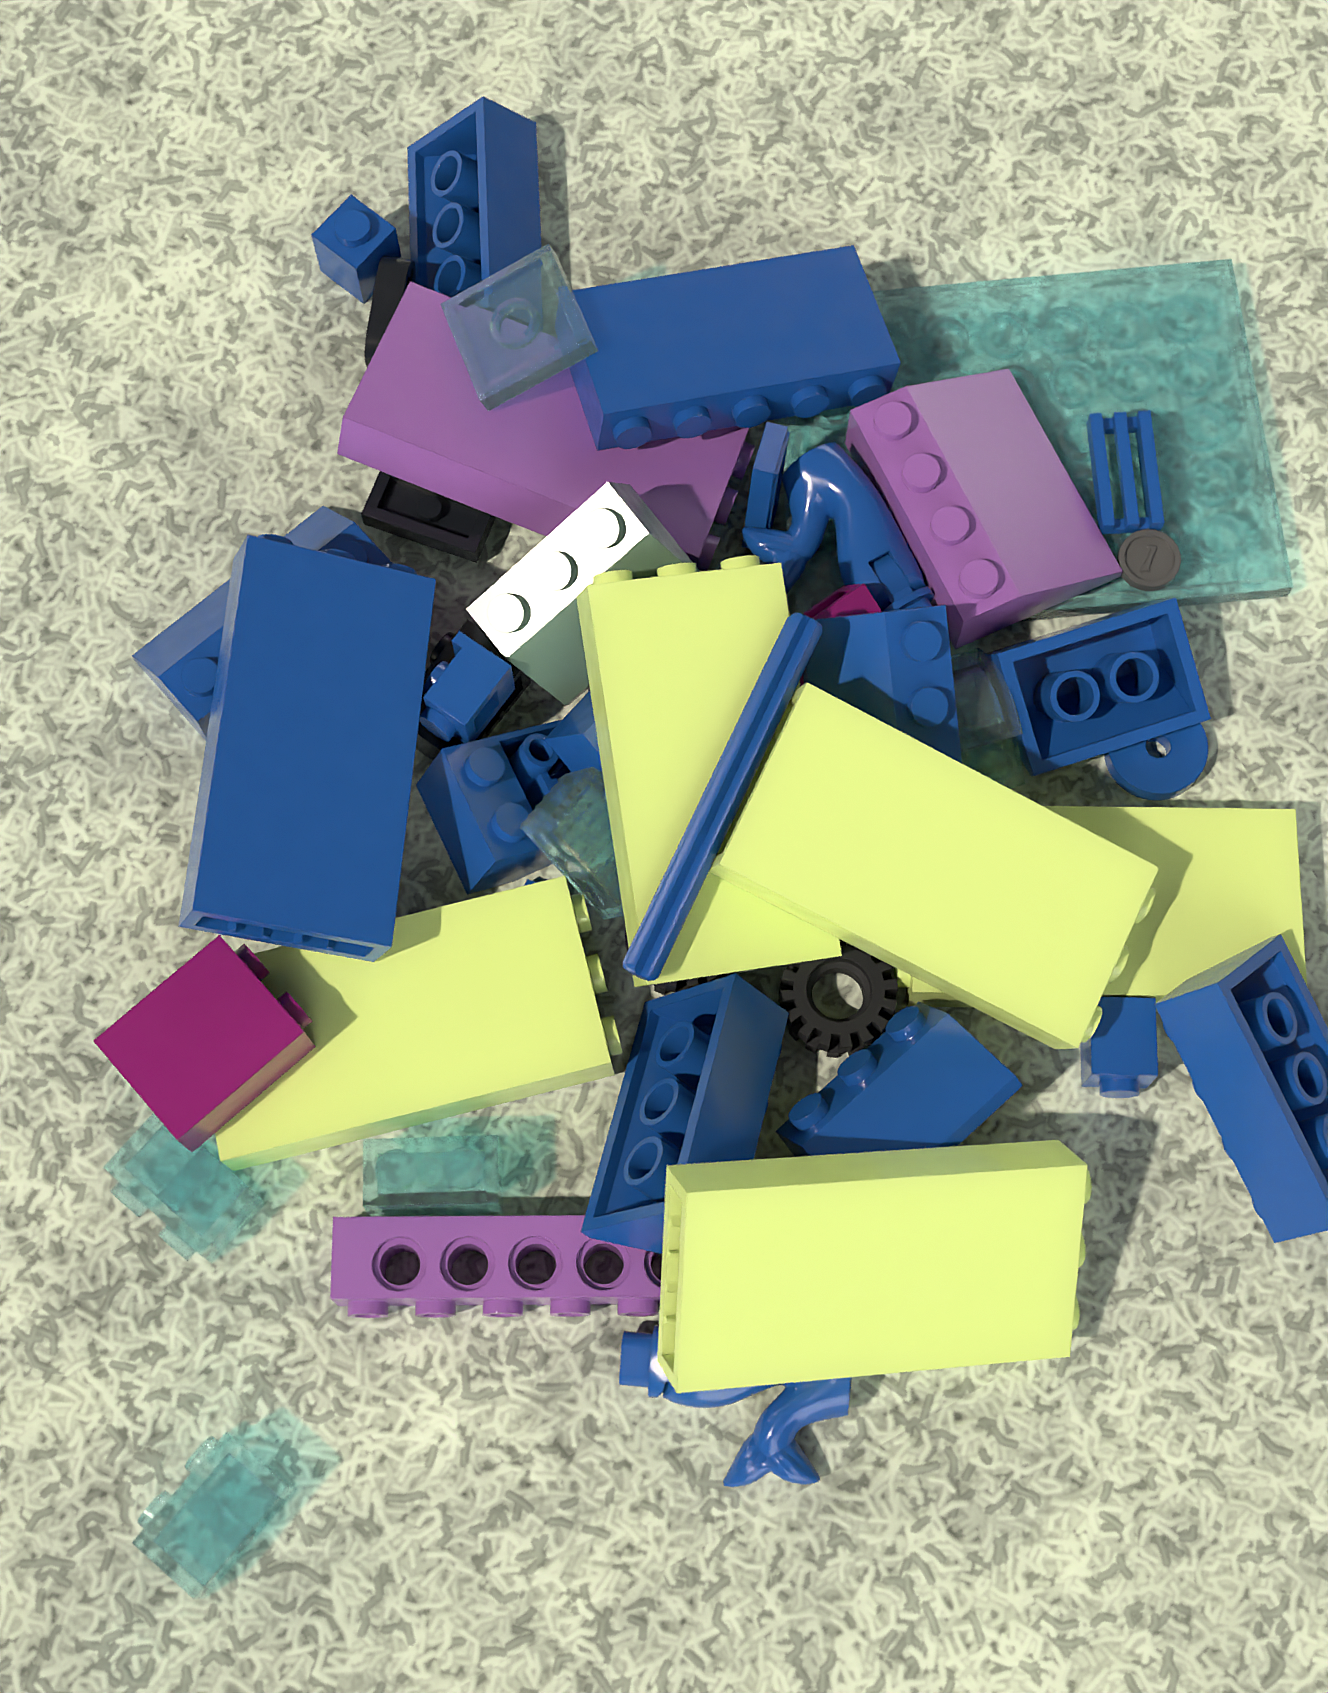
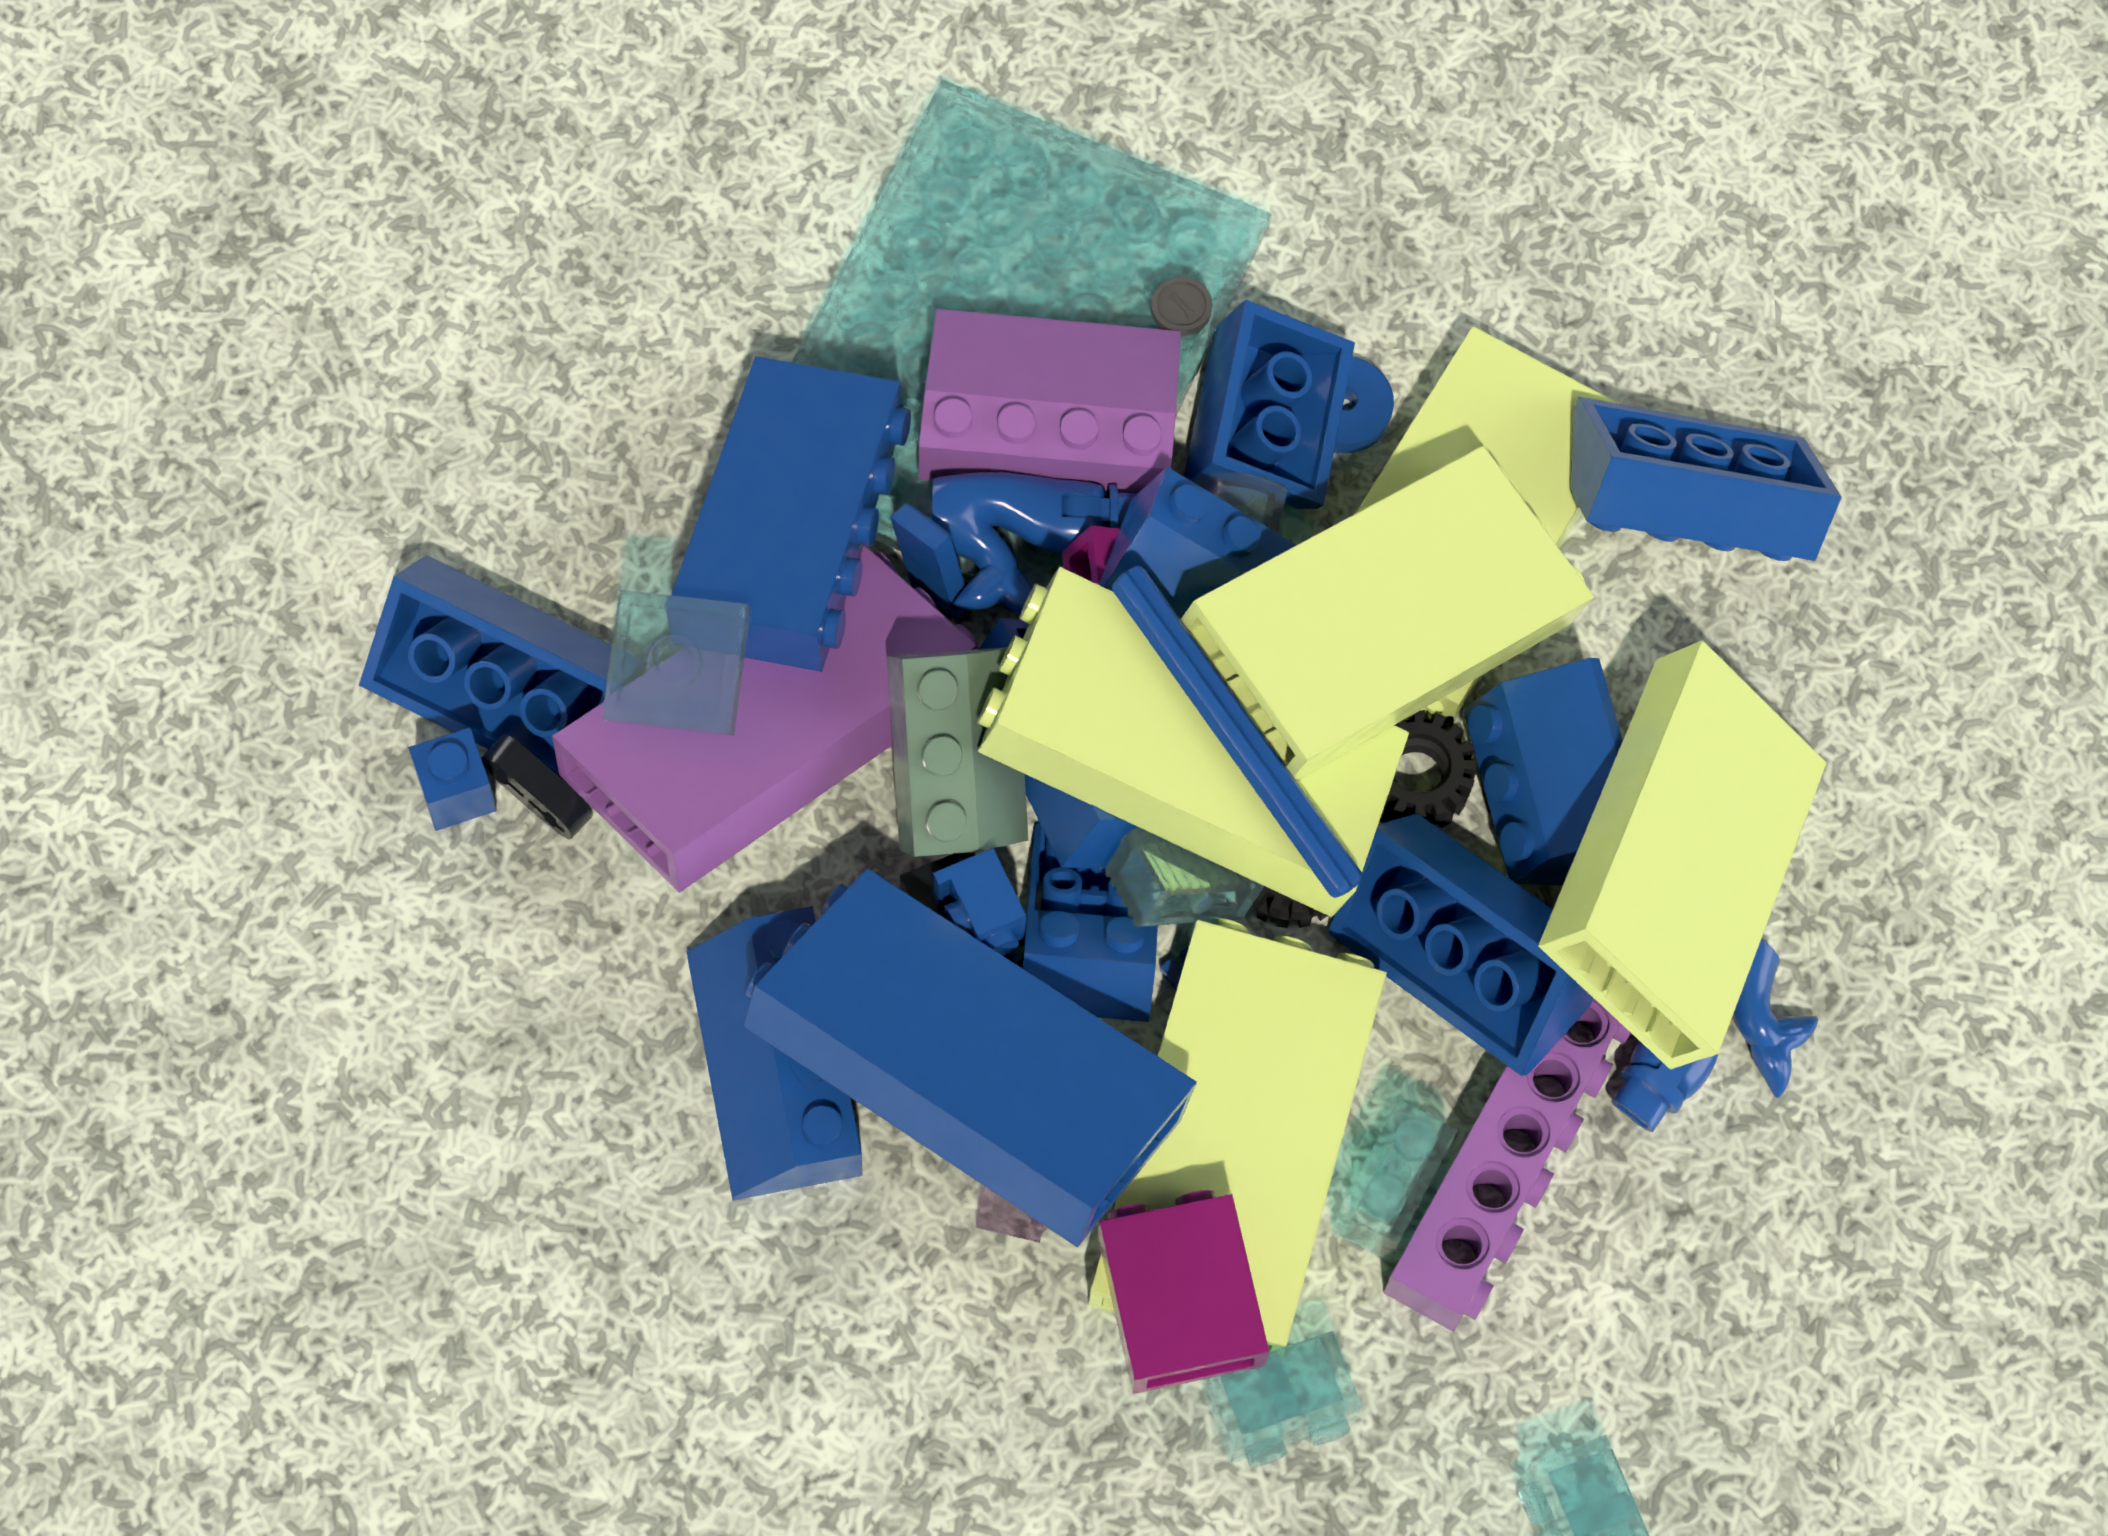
camera: 65 degrees left, 5 degrees down
(426, 517) = (762, 867): black plate -> none
(1121, 426) = (1097, 267): blue tile -> none
(1122, 1049) = (1604, 573): blue brick -> none

